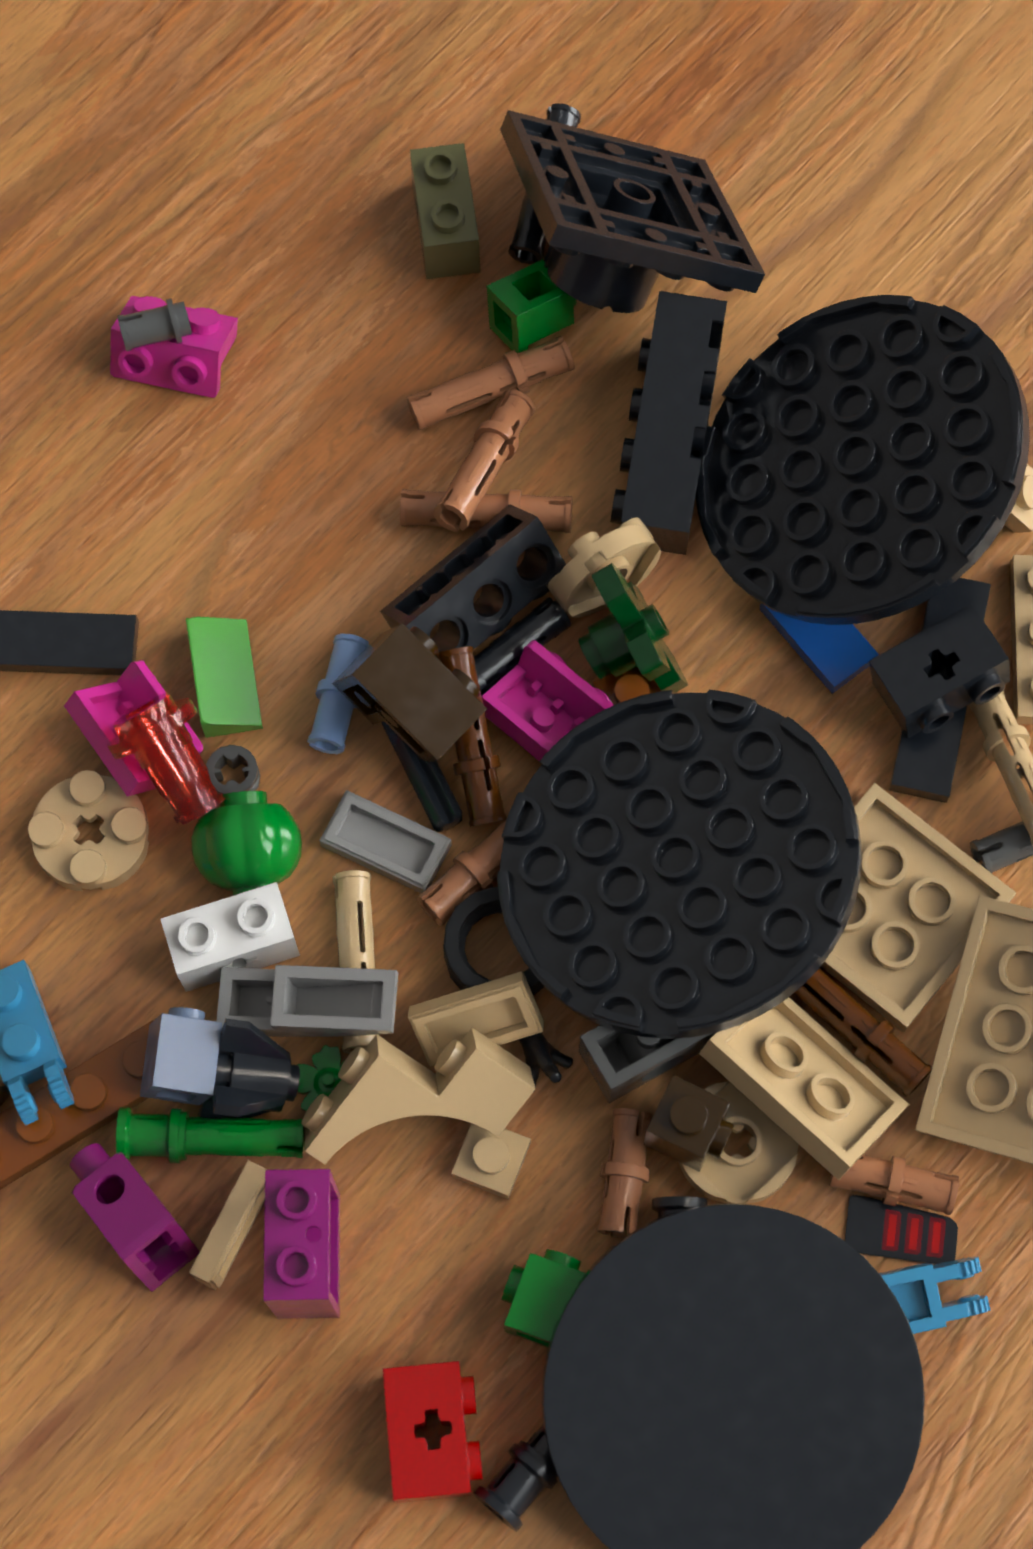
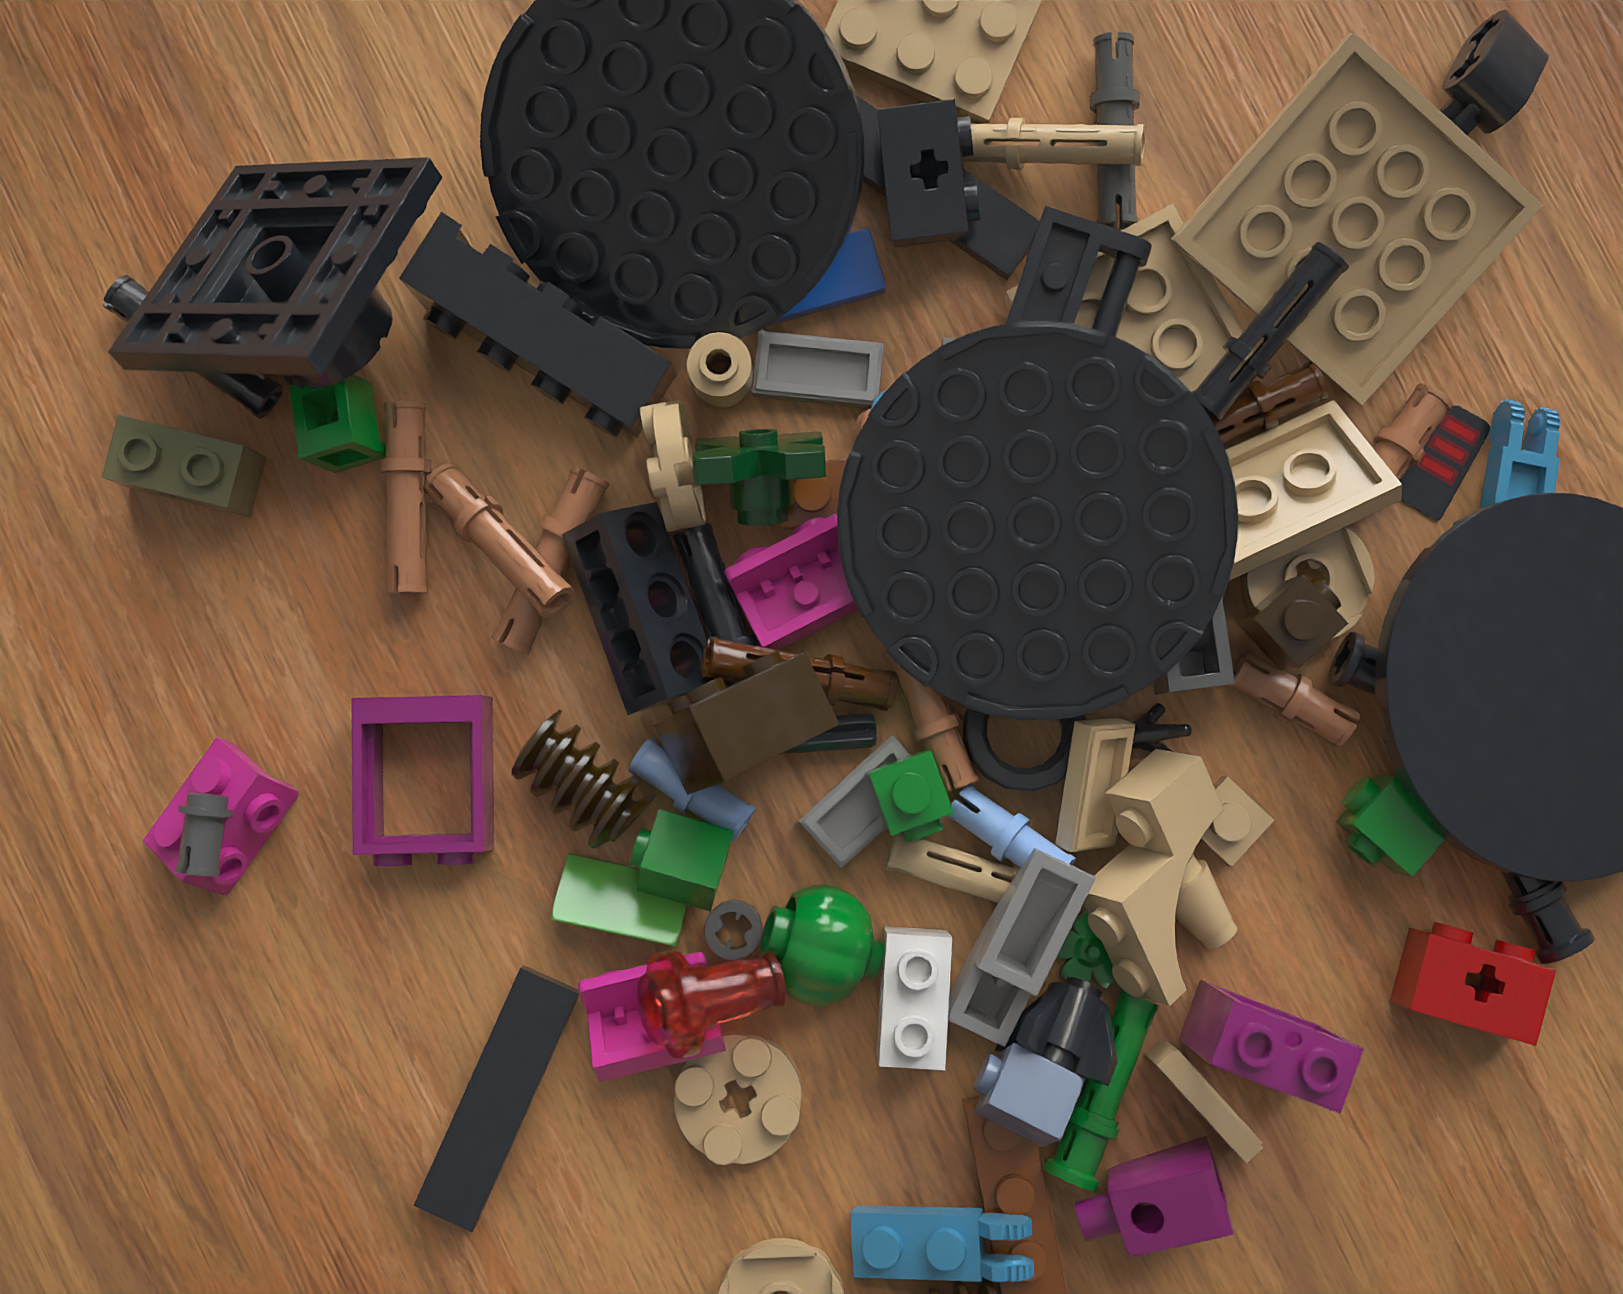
camera: 70 degrees left, 15 degrees up
(250, 438) = (367, 777): none -> magenta window
(276, 704) = (681, 859): none -> green brick
(305, 598) = (579, 782): none -> dark brown piece
(404, 859) = (910, 796): none -> green brick
(407, 956) = (1002, 831): none -> light blue pin
(407, 1153) = (1202, 907): none -> tan cone
(701, 576) = (726, 388): none -> tan brick
(740, 654) = (817, 369): none -> light grey tile
(911, 812) = (1062, 265): none -> black plate
(935, 1005) = (1319, 272): none -> black pin

